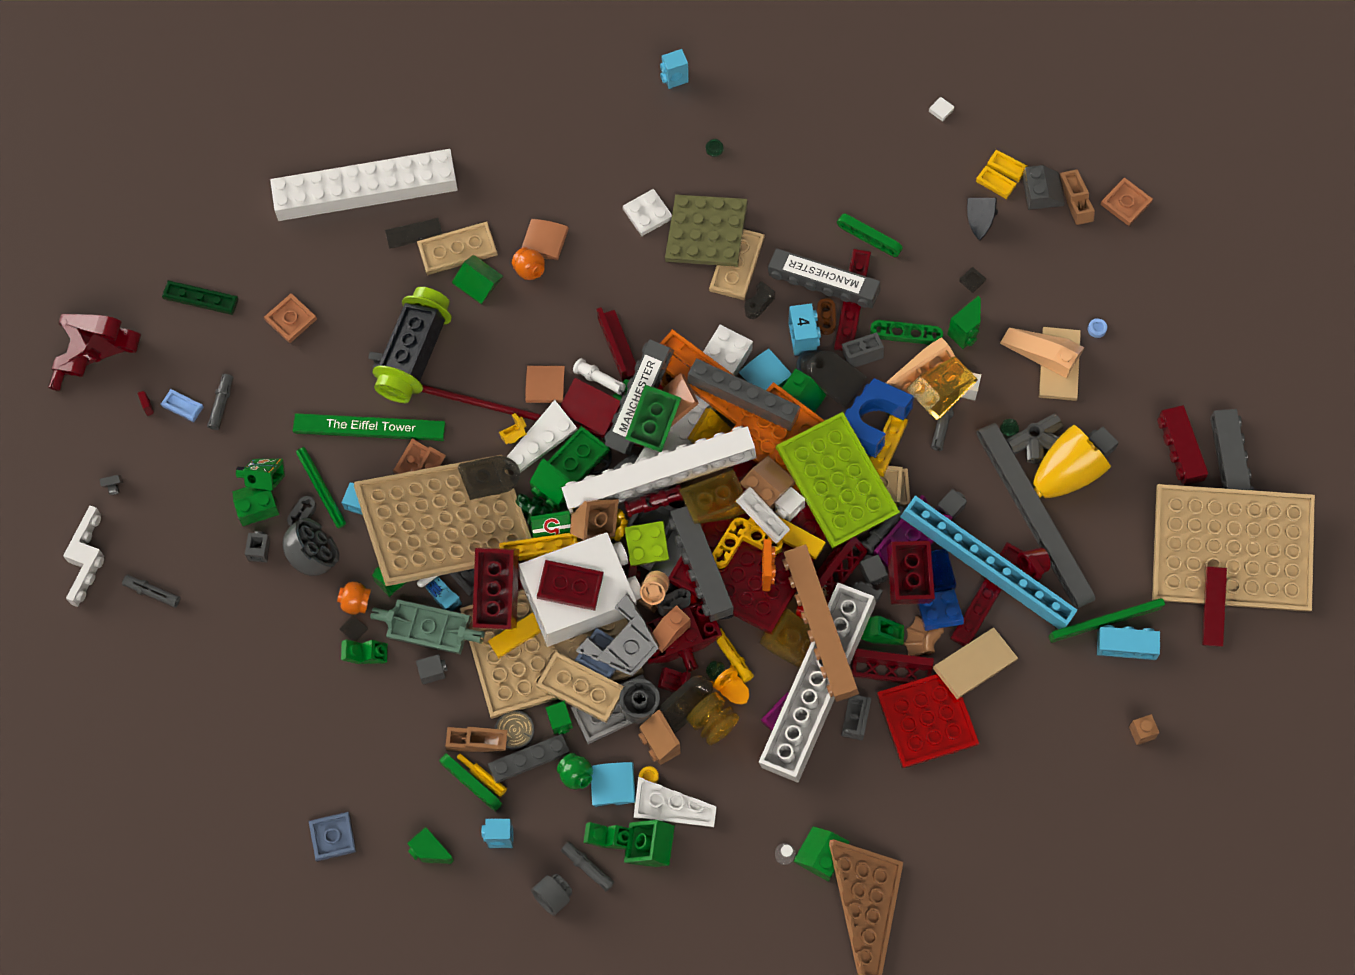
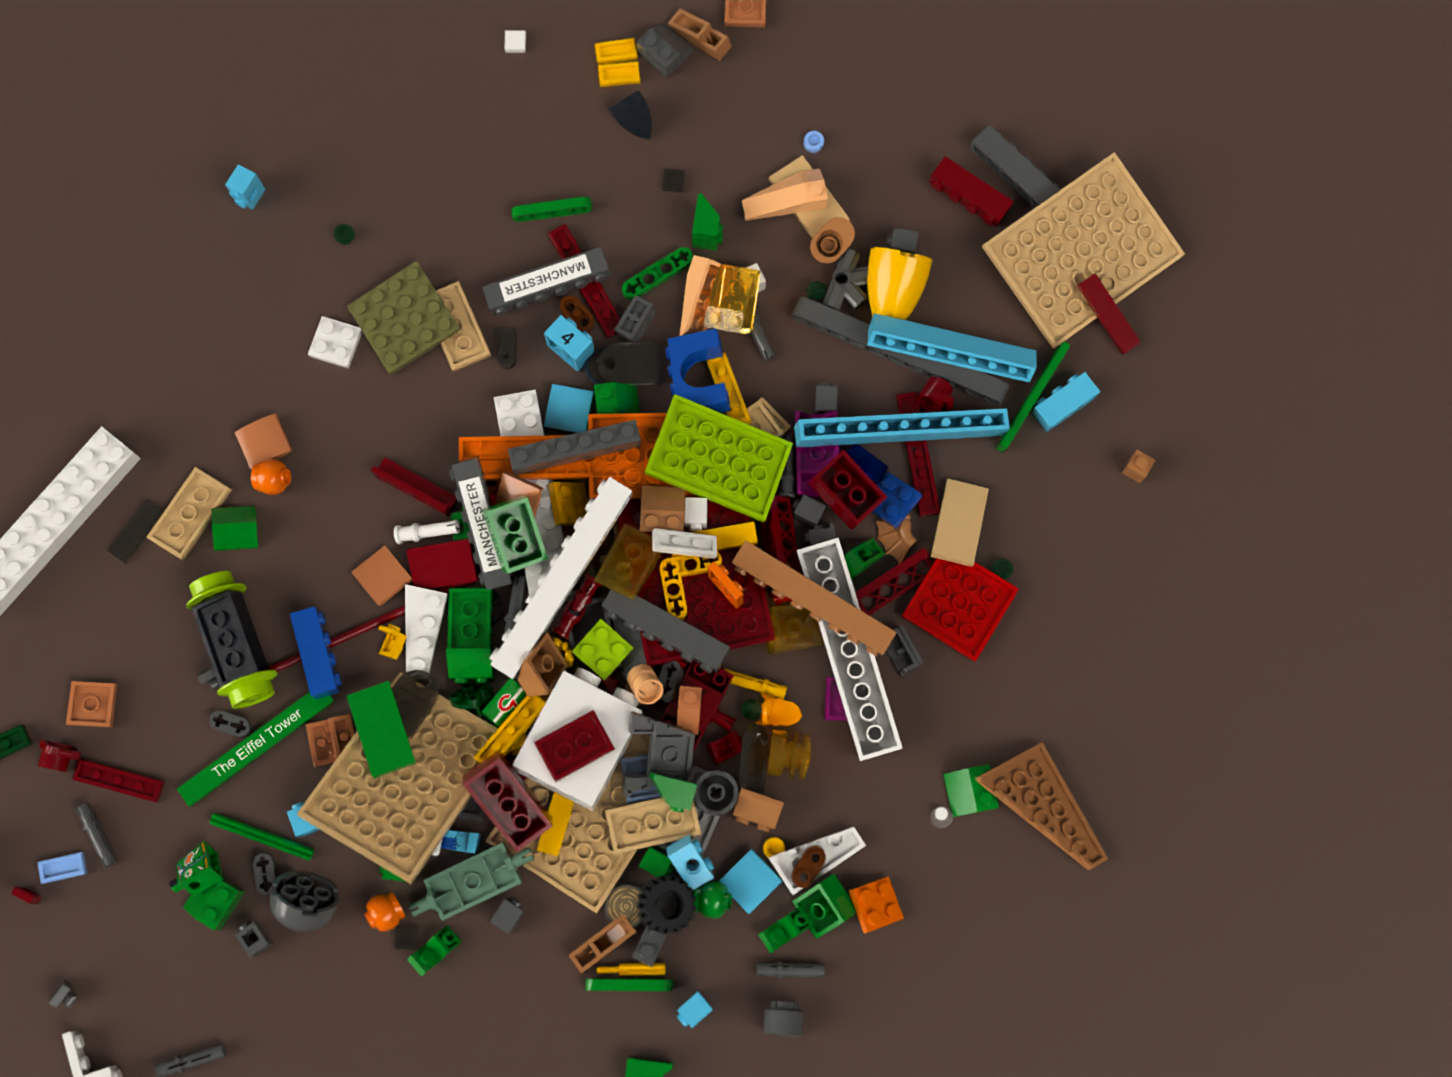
camera: 45 degrees left, 10 degrees up
(240, 331) = (57, 755): none -> dark red piece
(264, 379) = (118, 780): none -> dark red tile
(368, 398) = (228, 728): none -> dark grey beam
(455, 476) = (381, 729): none -> green tile
(457, 397) = (315, 652): none -> blue brick
(540, 727) = (684, 910): none -> black tyre
(575, 742) = (693, 874): none -> medium azure brick
(611, 674) = (674, 791): none -> green slope
(661, 806) = (807, 866): none -> reddish brown plate
(685, 872) = (876, 904): none -> orange plate
(980, 721) = (1002, 568): none -> clear green plate
(1049, 400) = (832, 240): none -> medium nougat piece
(1073, 538) = (951, 347): none -> medium azure brick

